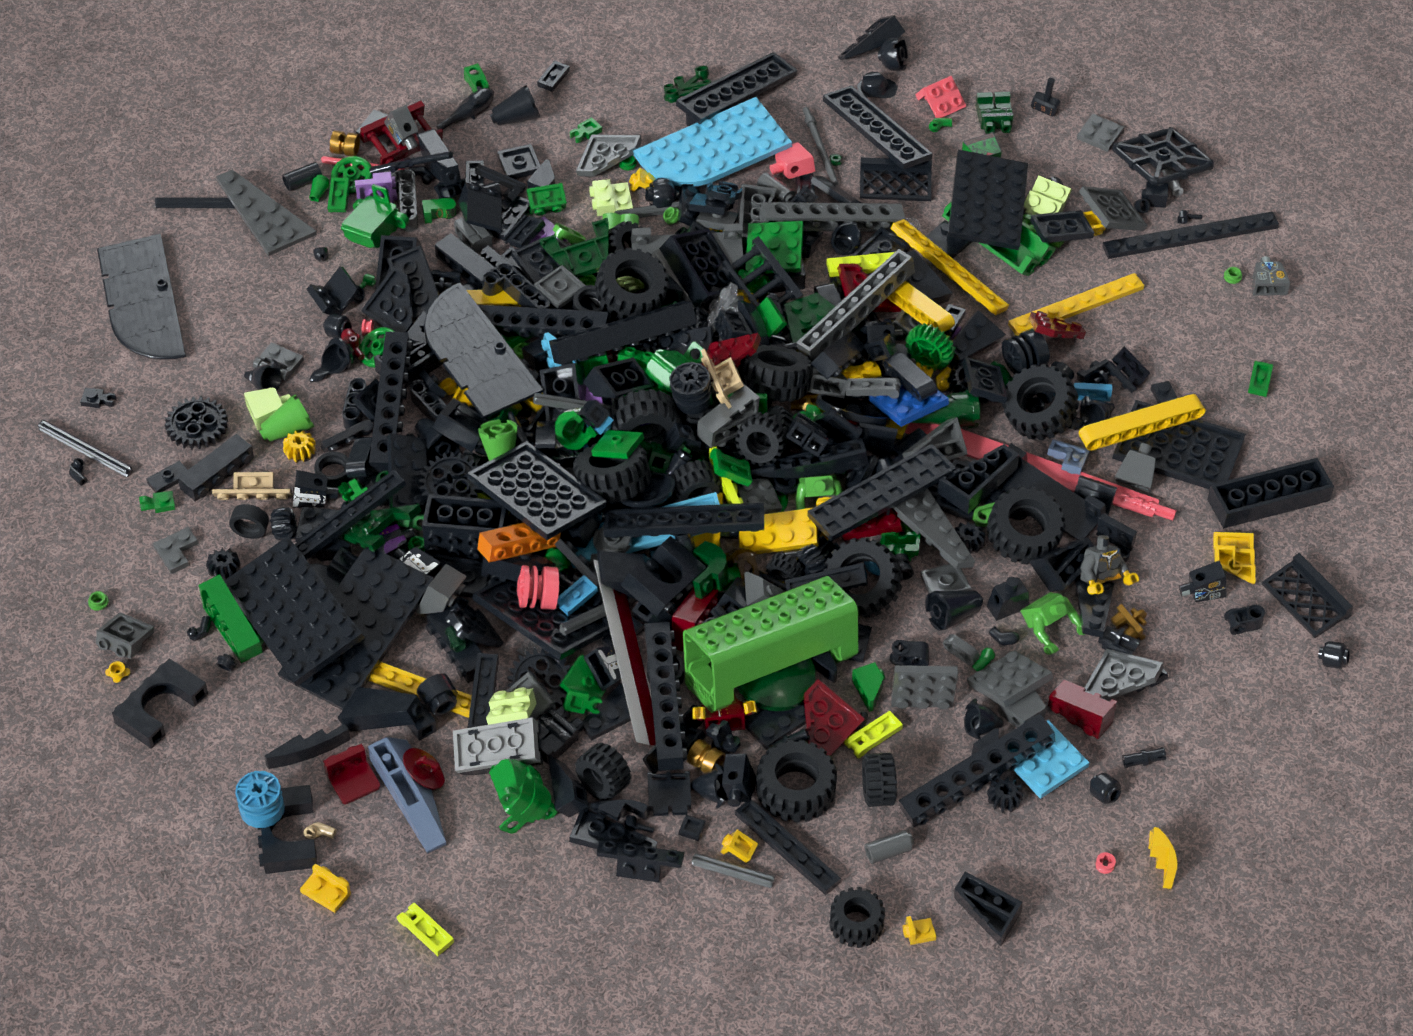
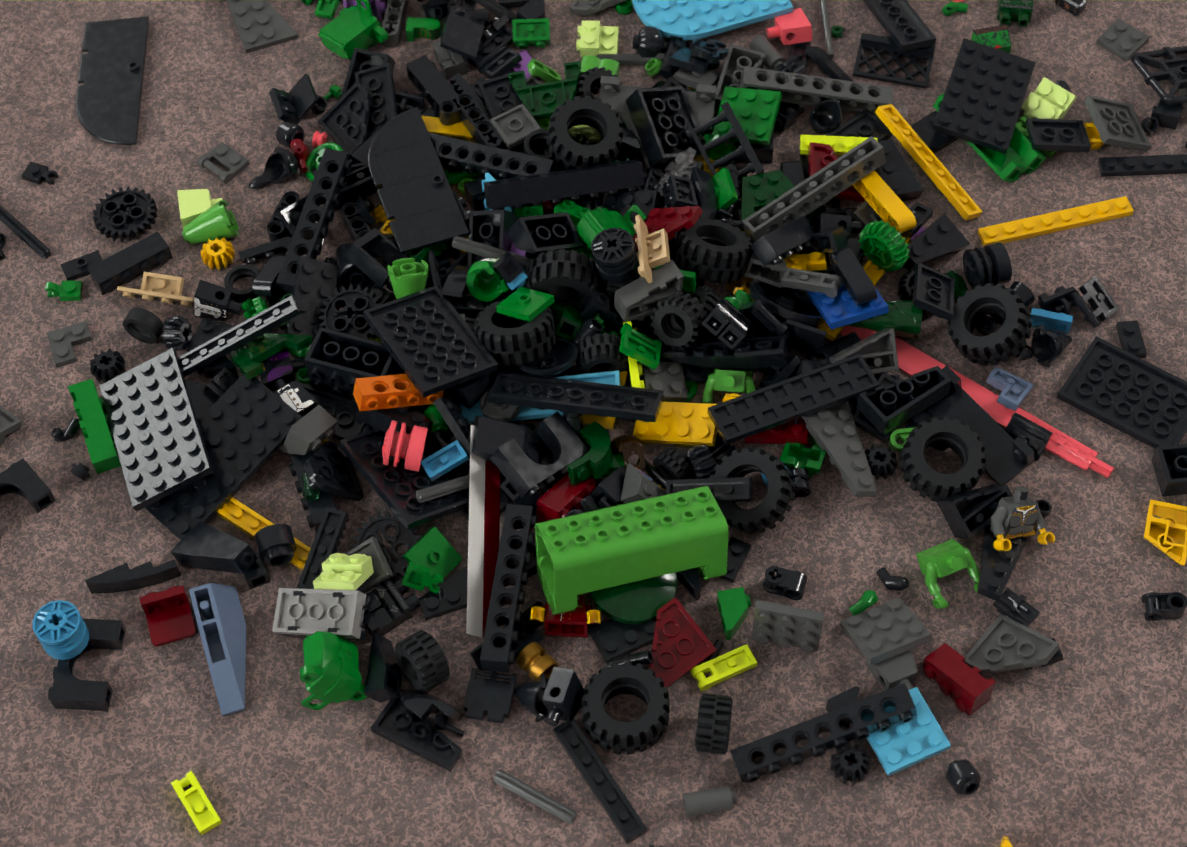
camera: 15 degrees right, 5 degrees up
(265, 376) = (205, 176): black hat -> none
(319, 829) = (119, 670): tan arm -> none
(320, 252) = (296, 57): black hinge -> none
(326, 888) = (108, 737): yellow bracket -> none
(423, 768) = (242, 622): dark red shield -> none
(604, 666) = (454, 542): black torso -> none
(639, 861) = (436, 767): black bracket -> none
(640, 178) = (632, 25): yellow bracket -> none
(692, 827) = (504, 739): black tile -> none
(723, 737) = (559, 645): black hips -> none
(739, 845) = (547, 770): yellow bracket -> none
(941, 379) = (891, 282): yellow arm -> none
(944, 579) = (842, 509): dark grey plate -> none
(951, 606) = (842, 537): black cone -> none
(961, 649) = (841, 587): dark grey beam -> none
(982, 718) = (845, 670): black hat -> none
(1008, 598) = (905, 538): black torso -> none
(1055, 326) = (1020, 243): dark red plate -> none
(1118, 533) = (1041, 483): black plate -> none
(1123, 617) = (1027, 580): pearl gold hips -> none
(1138, 468) = (1081, 414): dark grey torso -> none
(1141, 422) = (1096, 363): yellow beam -> none
(1144, 757) = (1015, 748): black pin -> none
(1205, 583) = (1127, 557): black torso -> none

